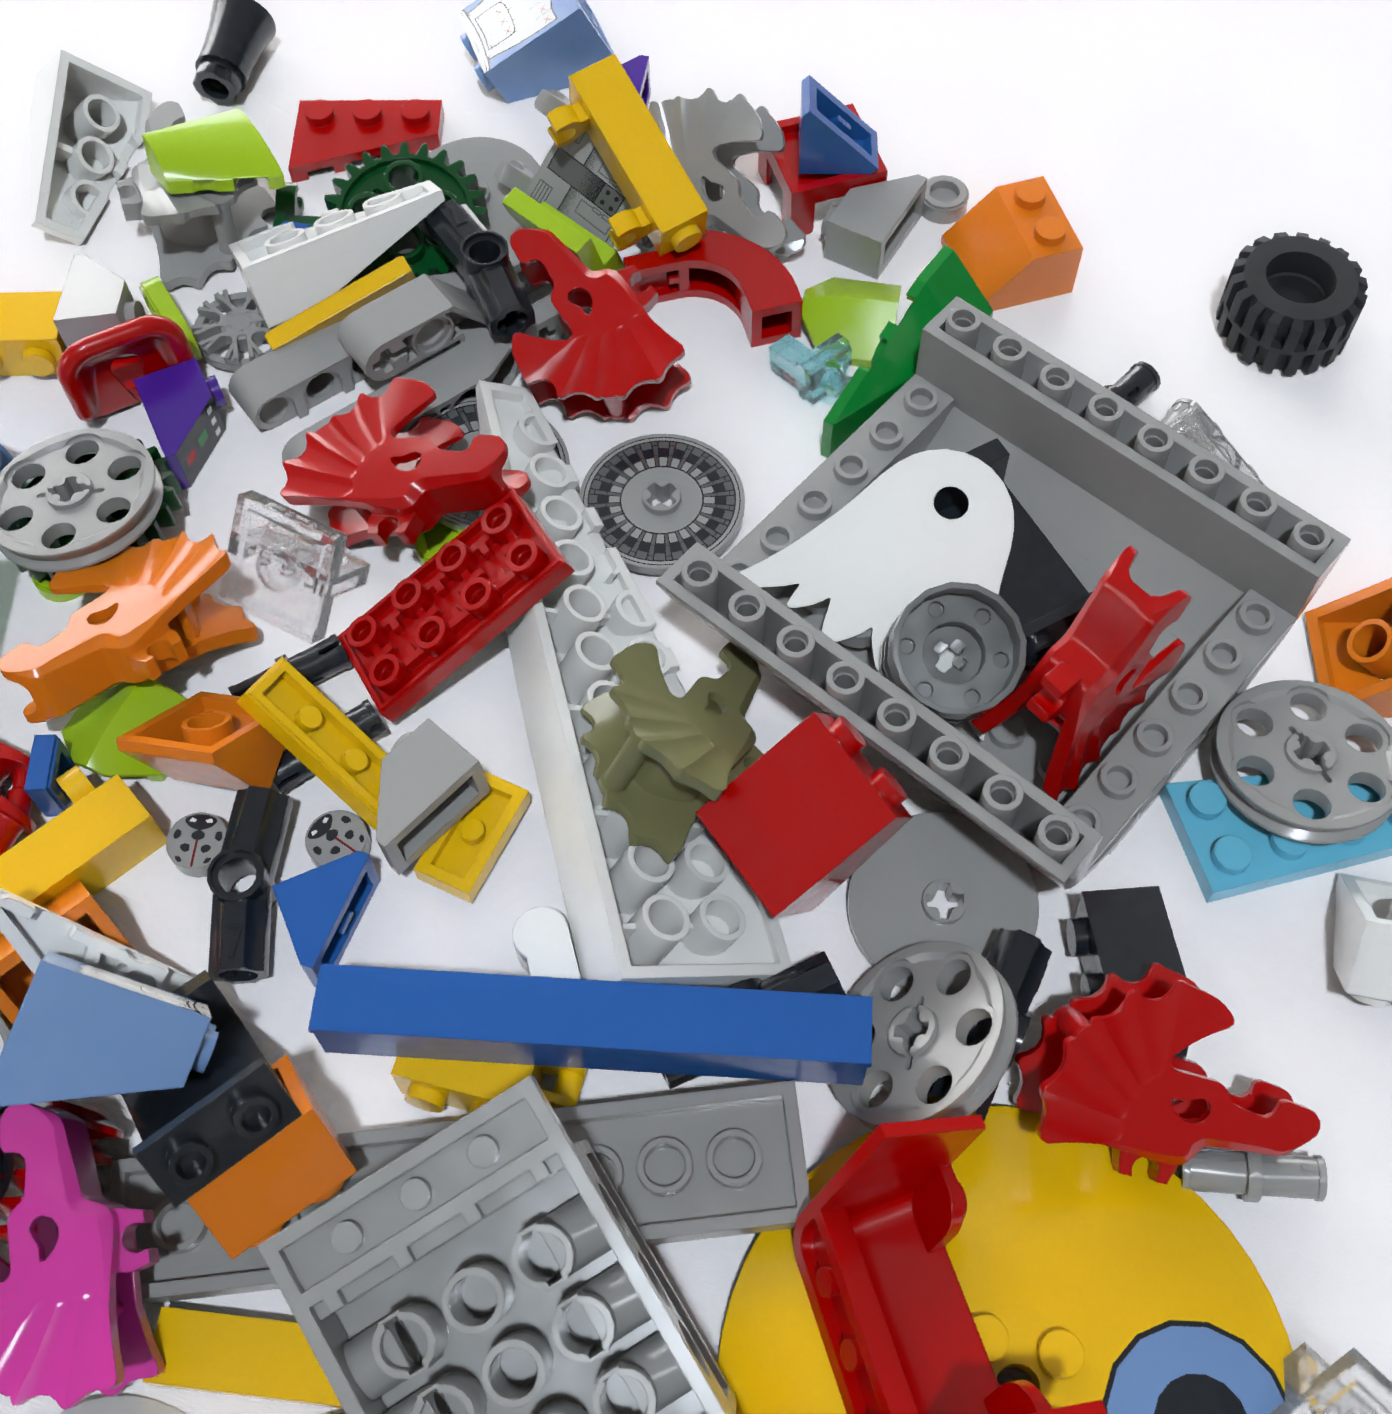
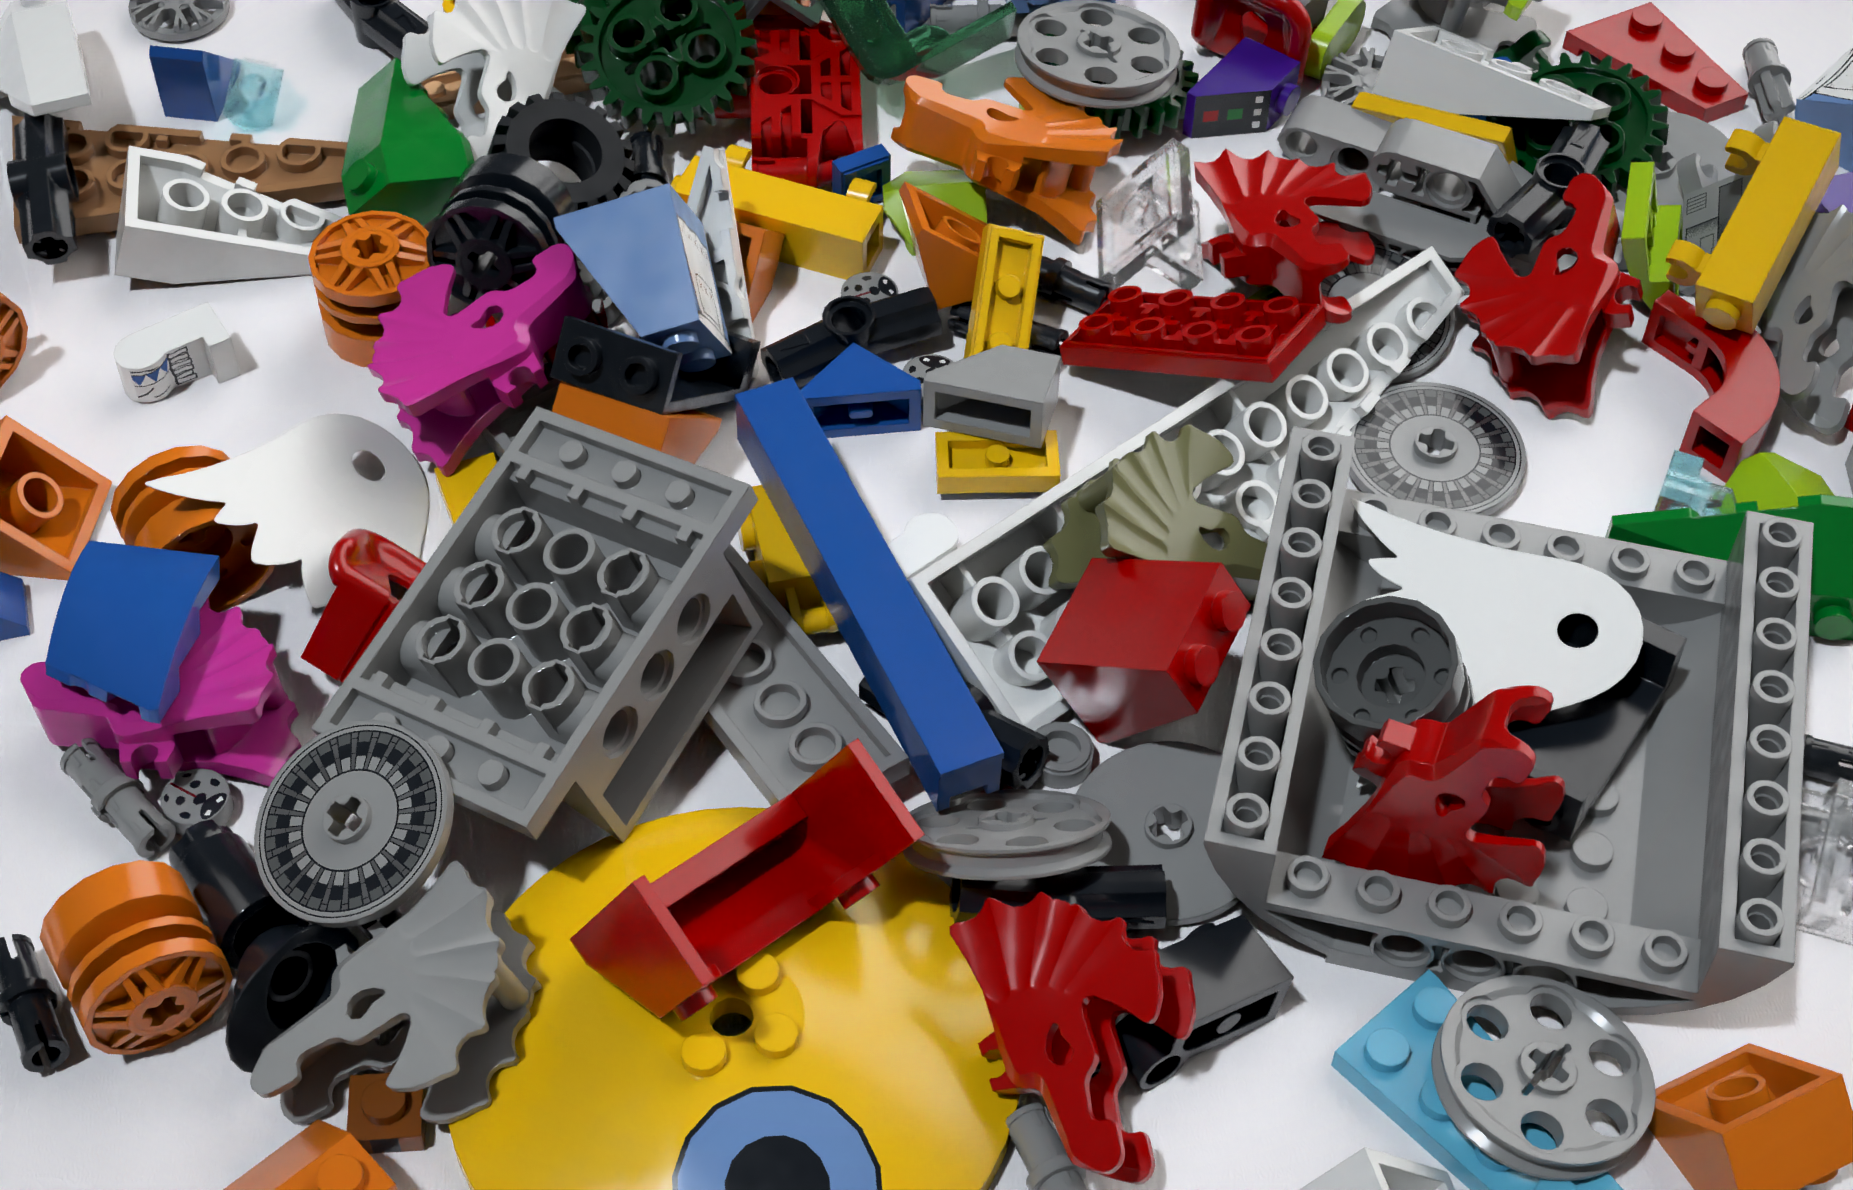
camera: 60 degrees right, 10 degrees down
(438, 80) = (1768, 79): none -> light grey axle
(817, 935) = (1069, 755): none -> light grey tile

